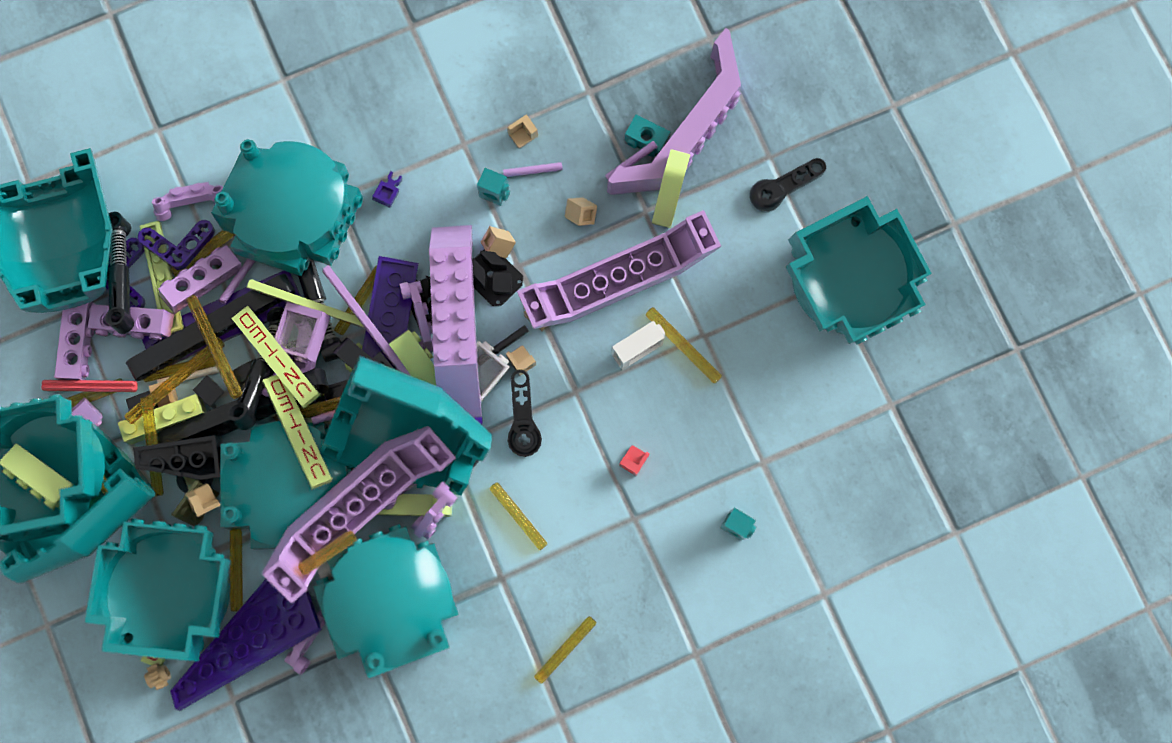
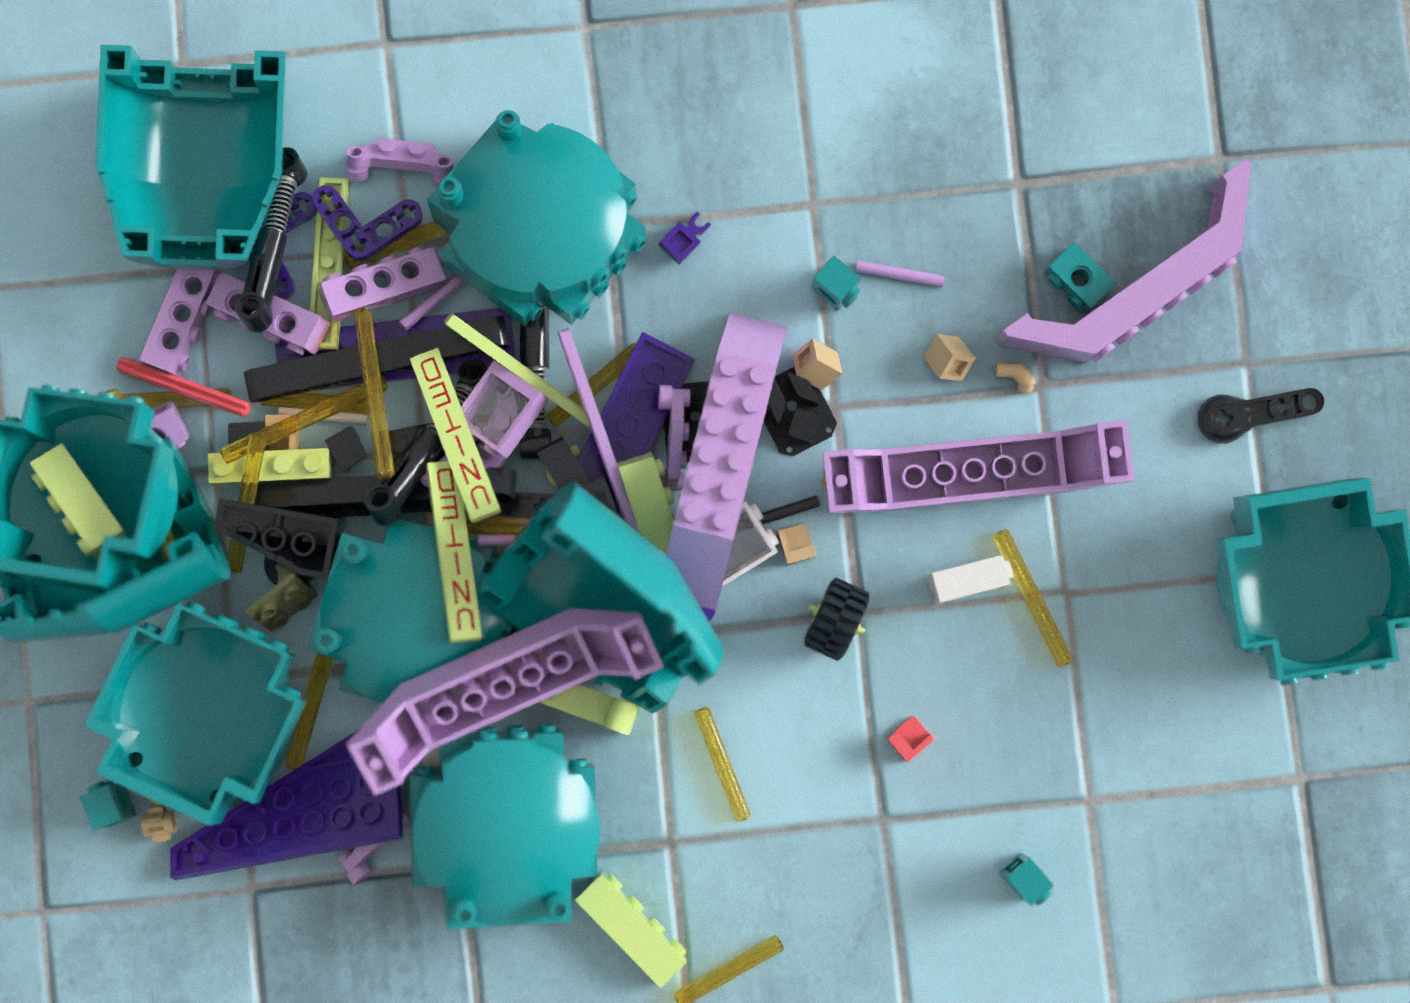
camera: 20 degrees right, 5 degrees up
(118, 674) = (107, 805): none -> teal brick
(202, 500) = (293, 604): tan panel -> none
(327, 552) = (444, 739): clear yellow axle -> none
(426, 524) = (589, 740): lavender plate -> none
(492, 642) = (631, 929): none -> yellowish green brick
(522, 131) = (903, 214): tan panel -> none
(523, 421) = (771, 634): black beam -> none
(561, 397) = (836, 619): none -> black wheel
(628, 207) = (1018, 373): none -> tan arm
(636, 157) = (1047, 307): lavender bar -> none
(670, 188) = (1090, 369): yellowish green beam -> none

